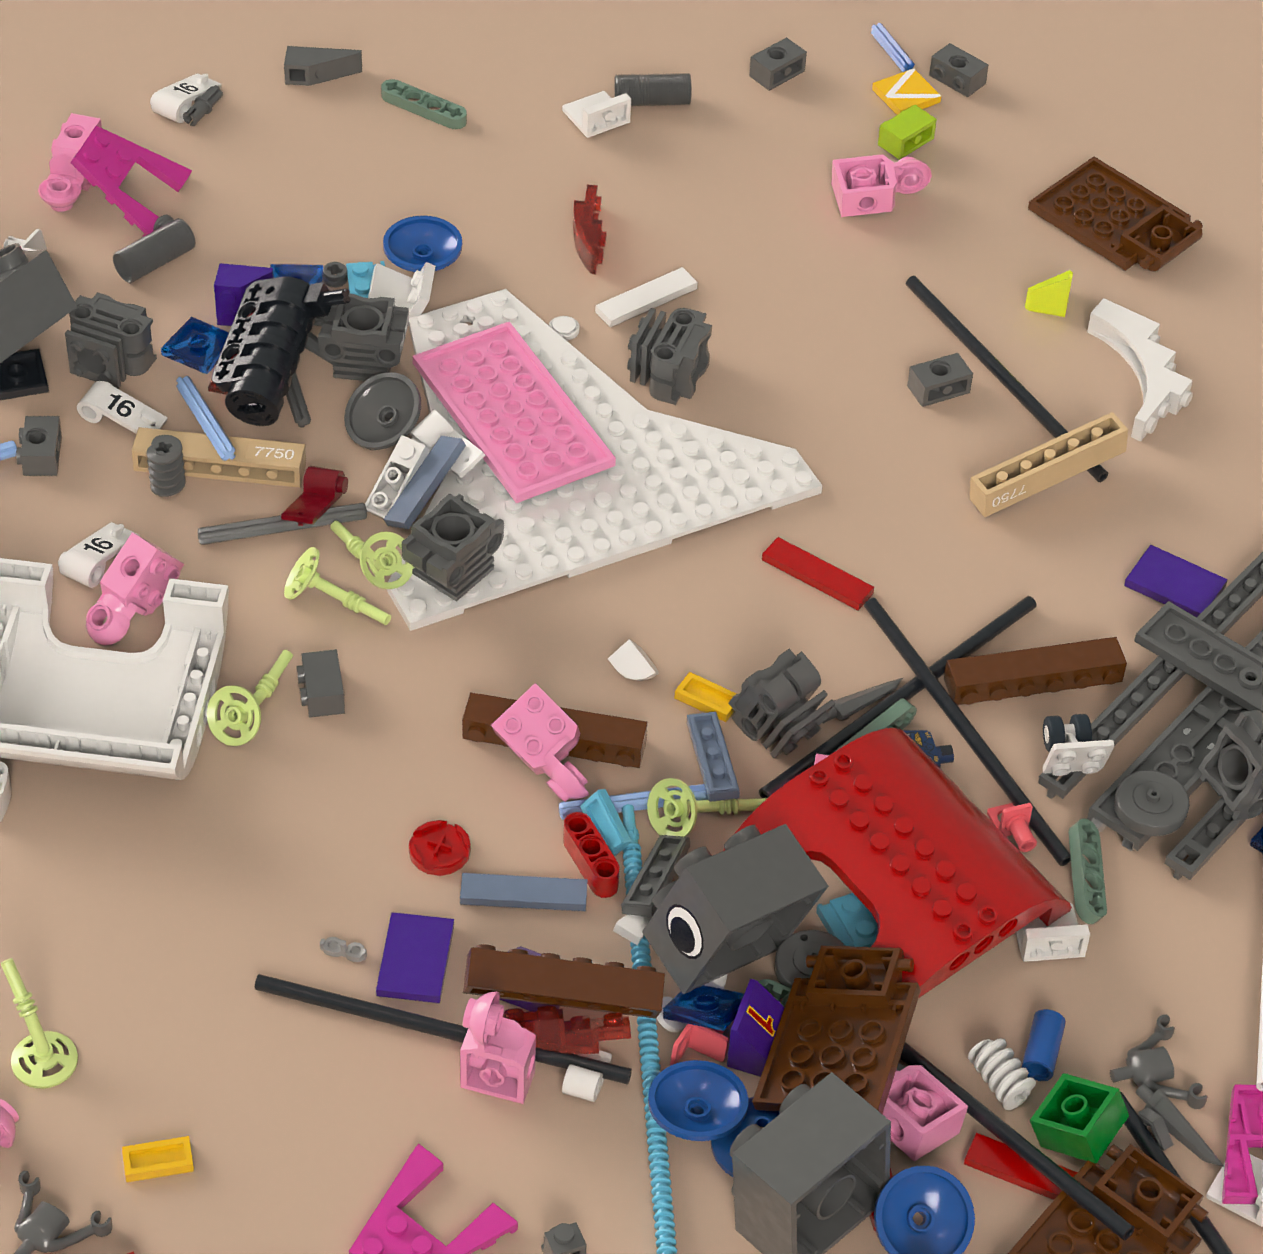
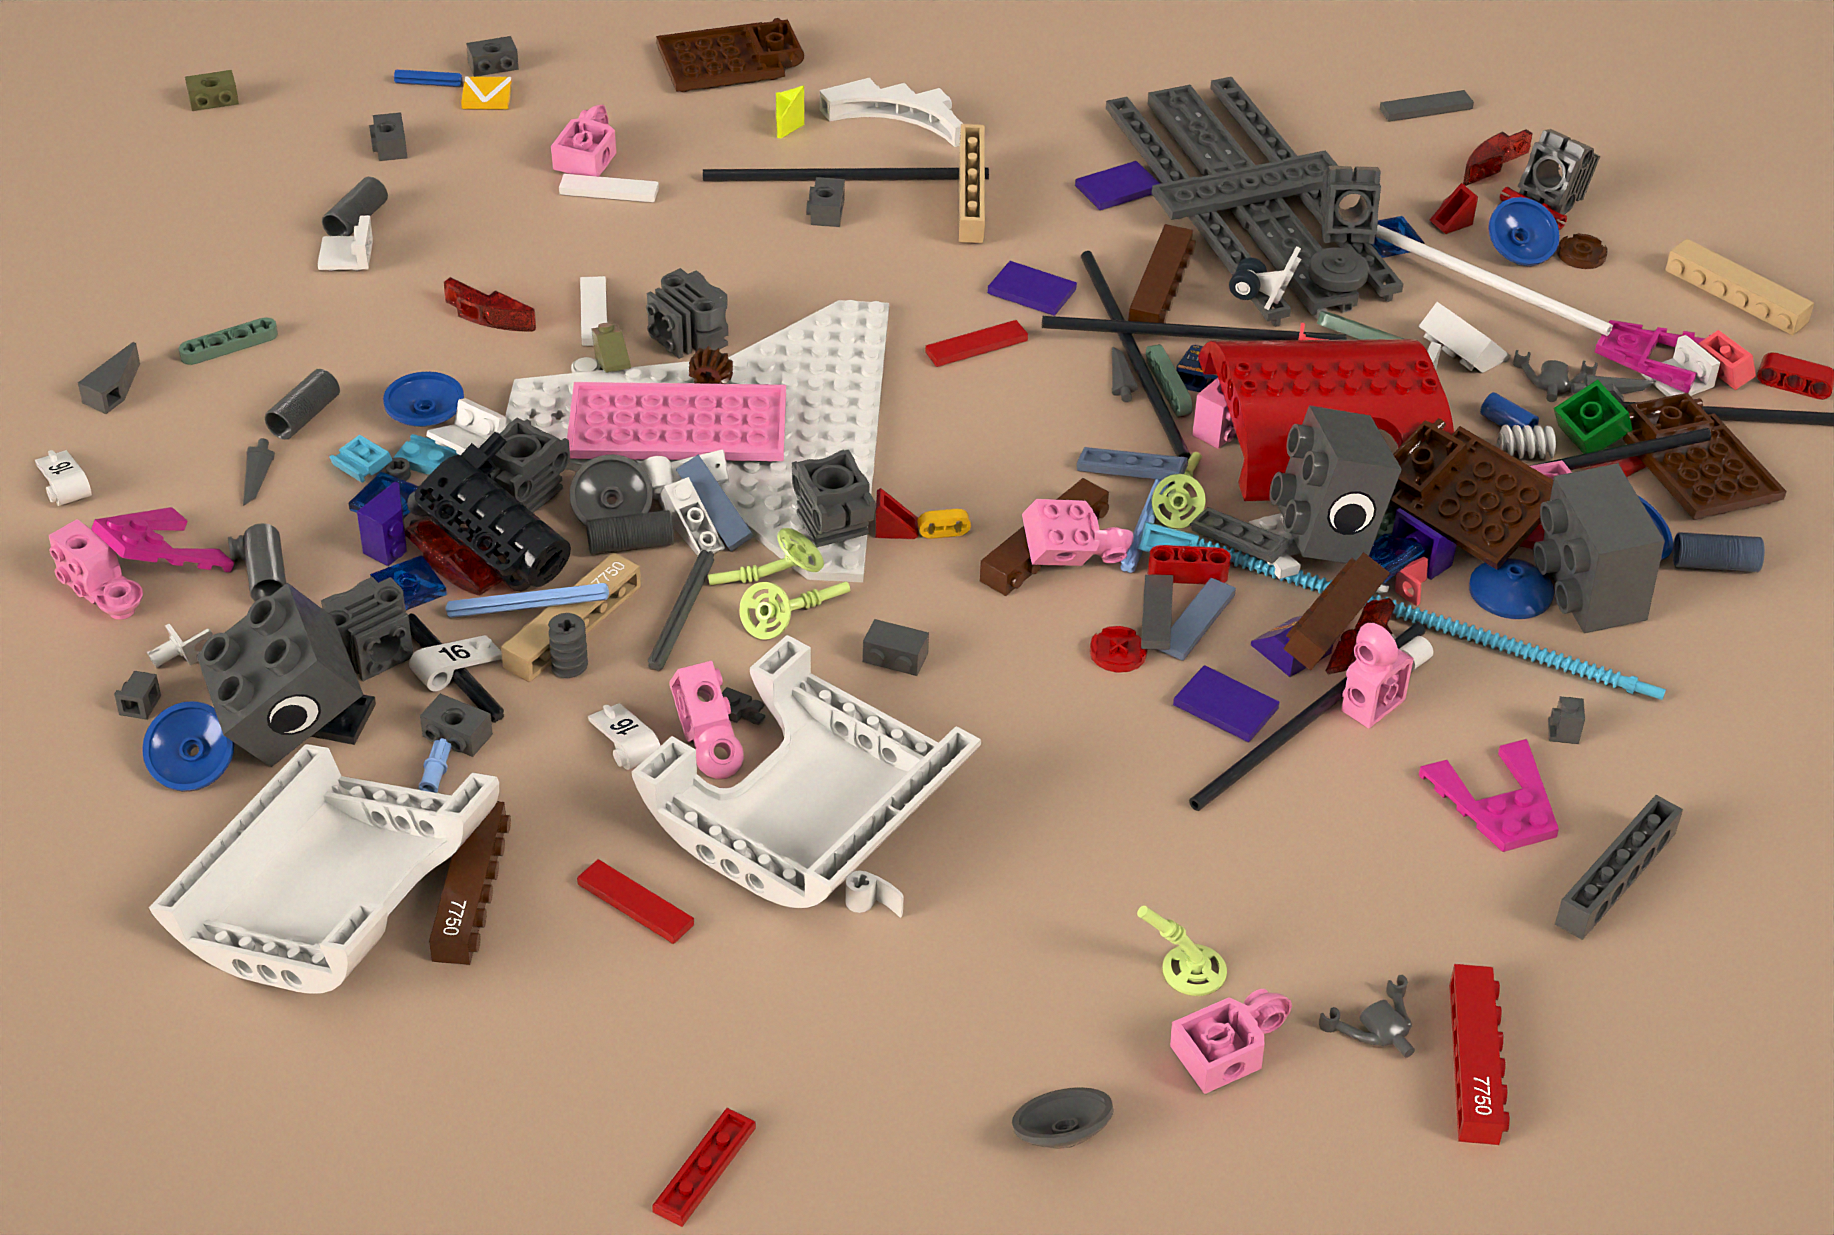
camera: 60 degrees left, 5 degrees down
(106, 425) = (461, 676): none -> black axle
(157, 1159) = (1346, 930): yellow tile -> none
(203, 105) = (91, 469): dark grey axle -> none
(241, 712) = (893, 704): yellowish green dish -> none
(281, 193) = (257, 465): none -> dark grey bar
(320, 491) = (665, 569): dark red door -> none
(326, 245) = (361, 458): none -> medium azure plate
(336, 947) = (1196, 738): light grey piece -> none
(348, 445) = (640, 532): none -> dark grey piece
(366, 179) = (302, 404): none -> dark grey piece
(502, 609) = (894, 519): none -> red slope
(503, 854) = (1157, 612): none -> dark grey tile
(520, 651) = (944, 523): none -> yellow beam
(585, 326) = (610, 347): none -> olive slope
(593, 397) = (710, 367): none -> reddish brown gear
(633, 662) = (1004, 467): white brick -> none
(698, 1100) = (1475, 594): blue dish -> none
(705, 696) = (1061, 447): yellow tile -> none
(779, 701) = (1120, 399): dark grey piece -> none
(835, 230) = (609, 188): none -> white tile
(907, 131) = (540, 106): lime brick -> none
(941, 581) = (1032, 288): none -> dark purple tile
(1148, 962) = (1462, 340): none -> white slope

